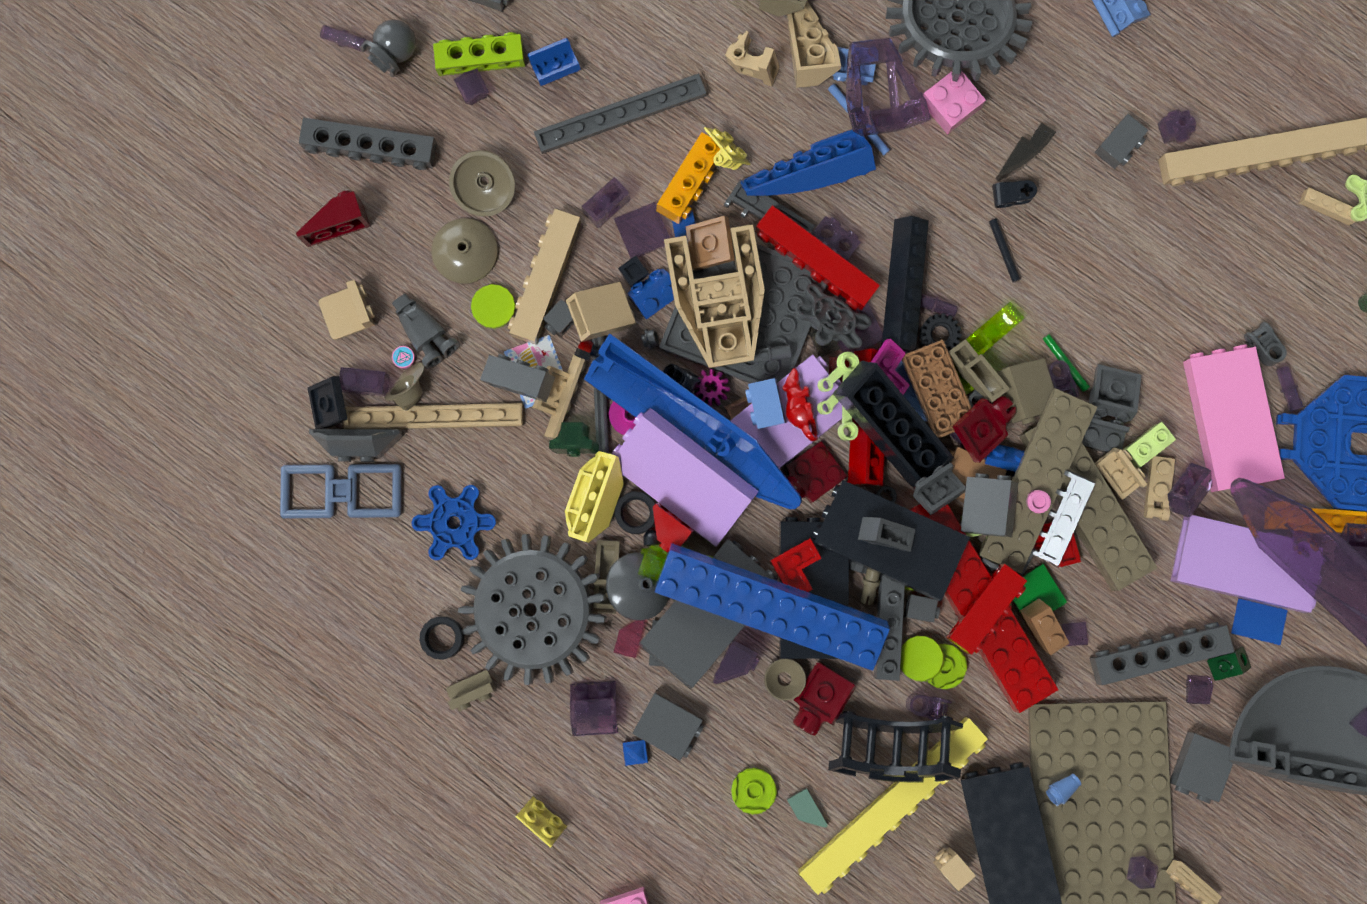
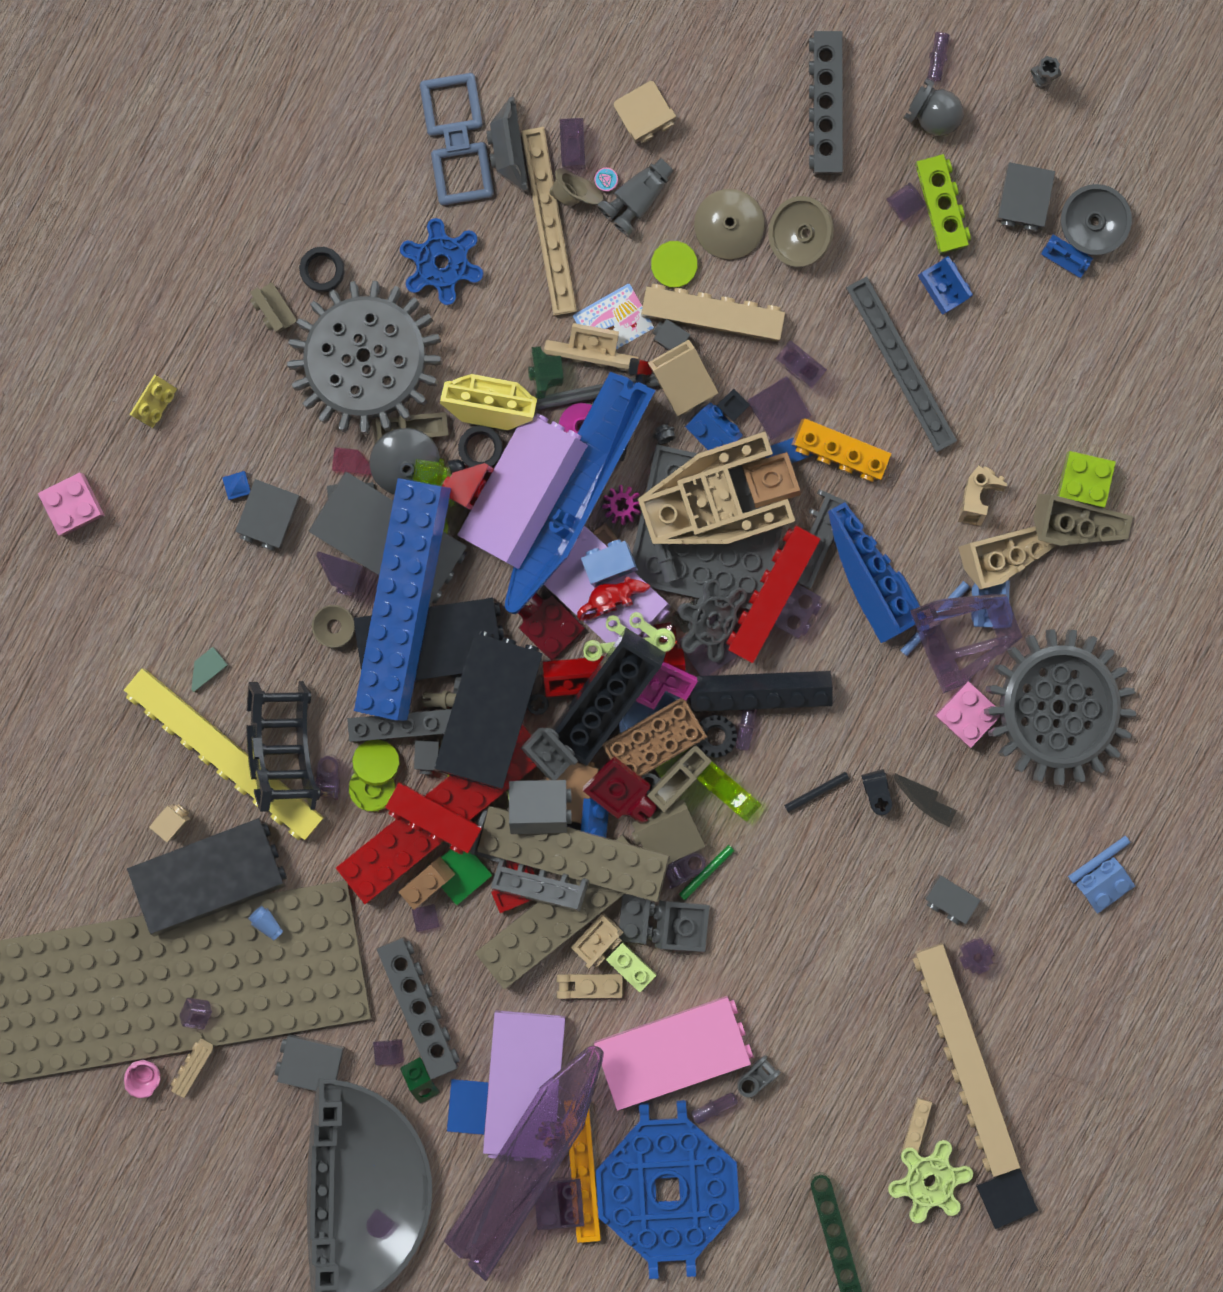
camera: 85 degrees right, 5 degrees up
(327, 403) = (543, 110): black tile -> none
(335, 219) = (740, 87): dark red slope -> none
(518, 377) = (600, 303): dark grey brick -> none
(593, 708) = (274, 436): clear purple slope -> none
(682, 376) = (625, 472): black piece -> none
(728, 155) = (876, 485): light yellow hinge -> none
(753, 791) = (216, 612): lime tile -> none
(790, 565) = (451, 614): red plate -> none
(822, 699) = (319, 666): dark red plate -> none
(886, 533) = (491, 703): dark grey arch -> none
(1038, 501) = (551, 855): bright pink tile -> none
(1190, 490) = (590, 1014): clear purple brick -> none

